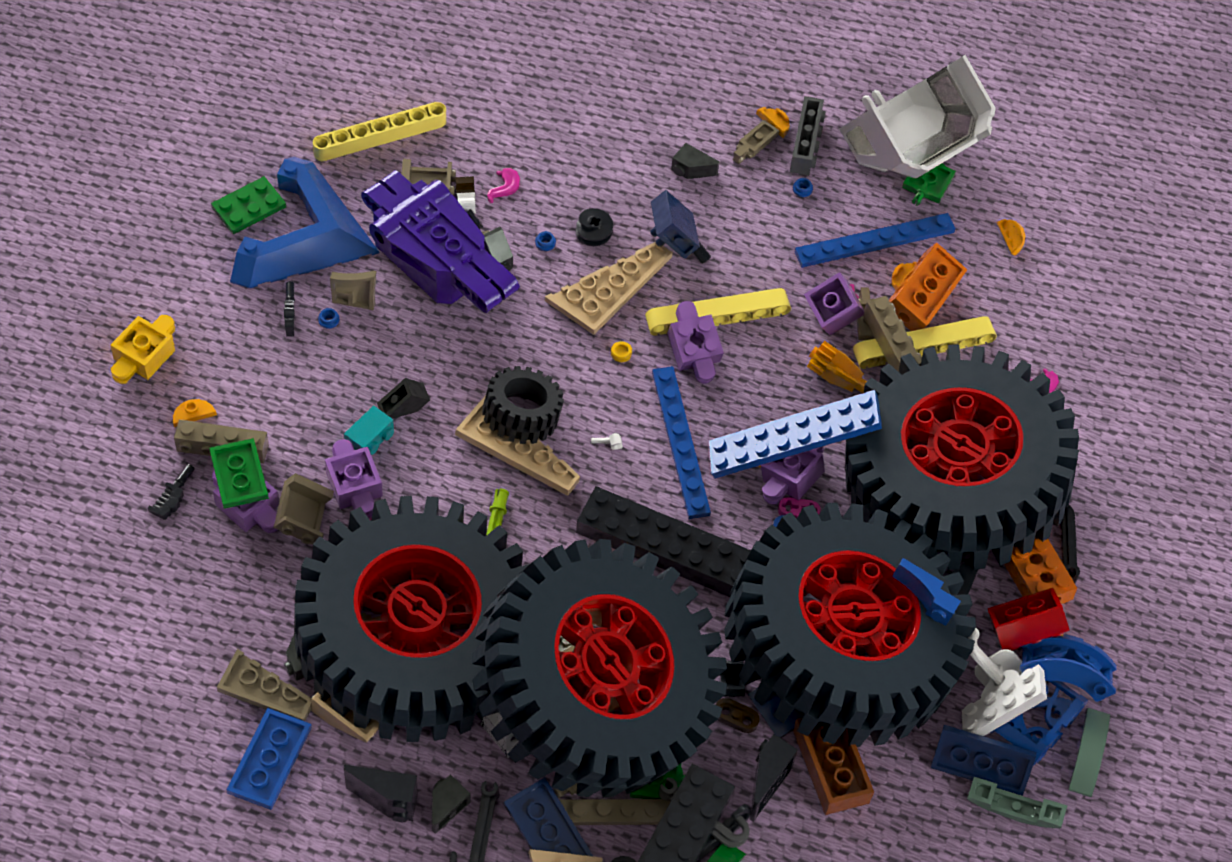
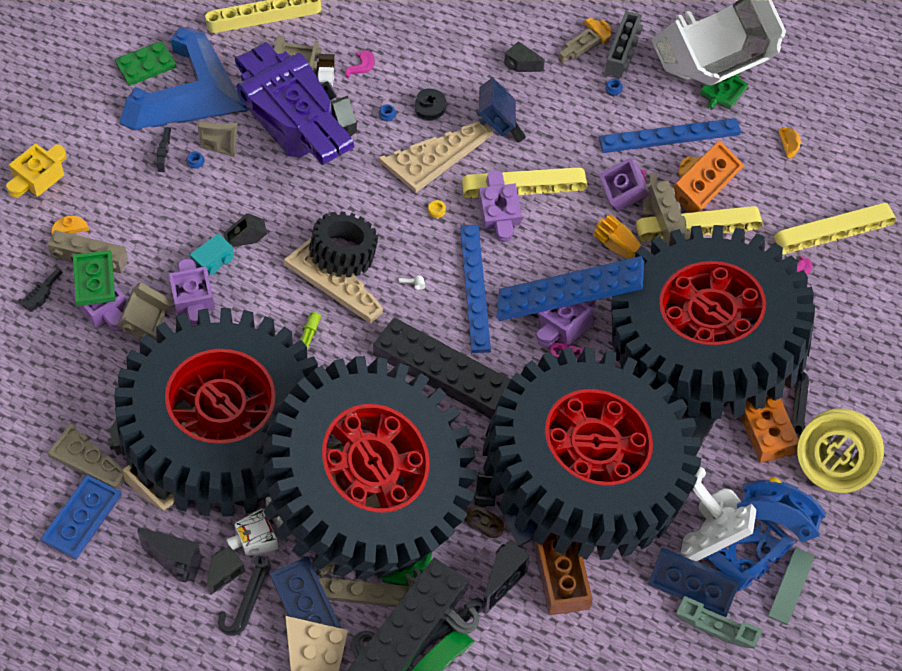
camera: 10 degrees right, 0 degrees up
(475, 758) = (254, 535): none -> torso
(926, 587) = (660, 427): blue slope -> none
(1028, 619) = (751, 466): red brick -> none
(1078, 332) = (835, 227): none -> light yellow beam
(1135, 612) = (840, 472): none -> light yellow wheel

